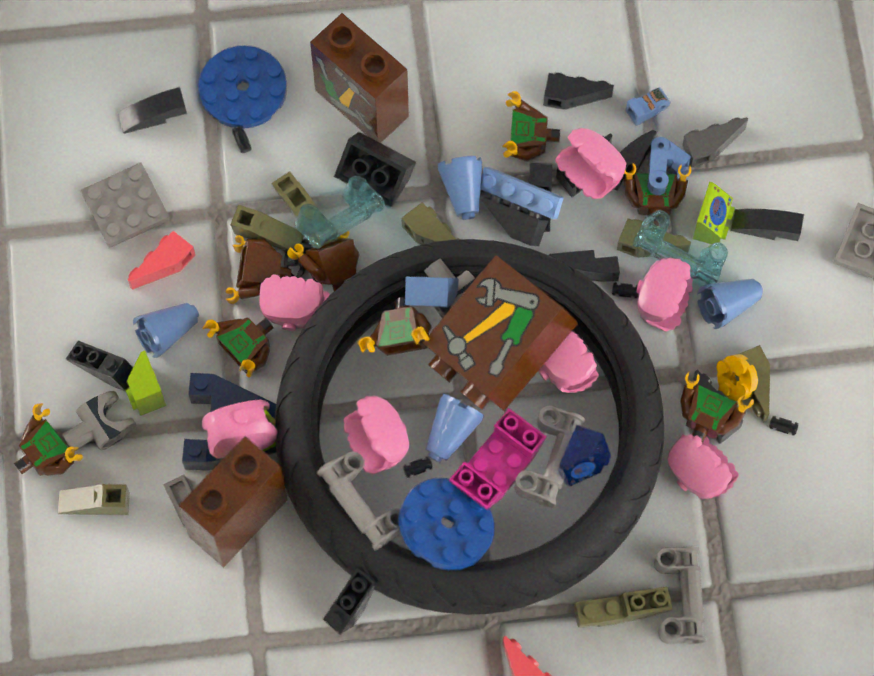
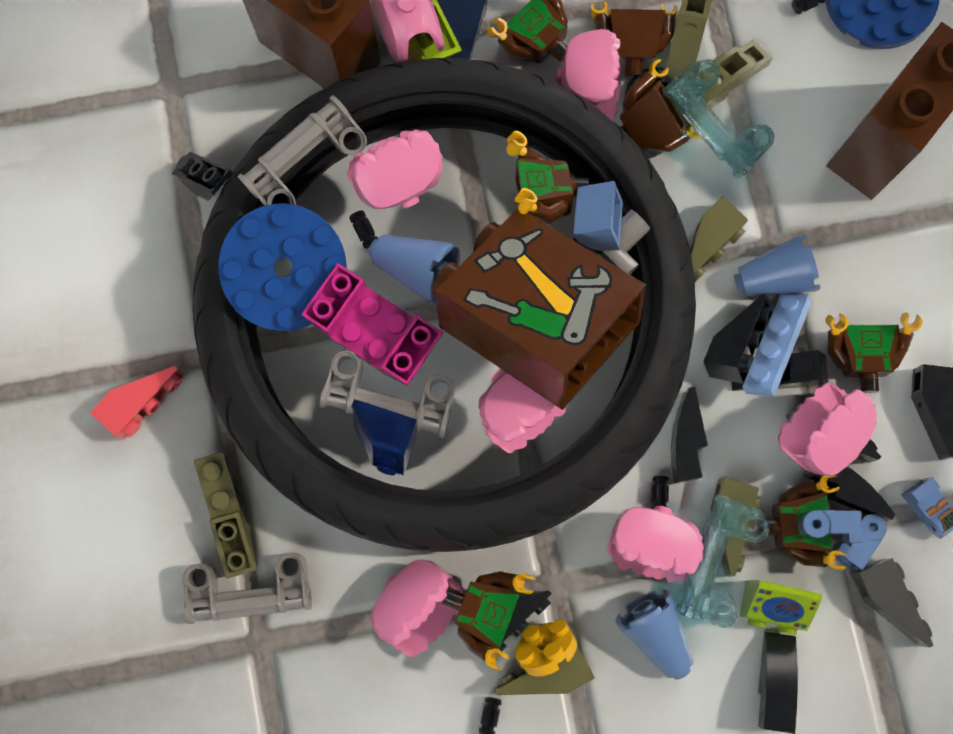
camera: 85 degrees right, 10 degrees up
(376, 163) = (793, 162): black slope -> none

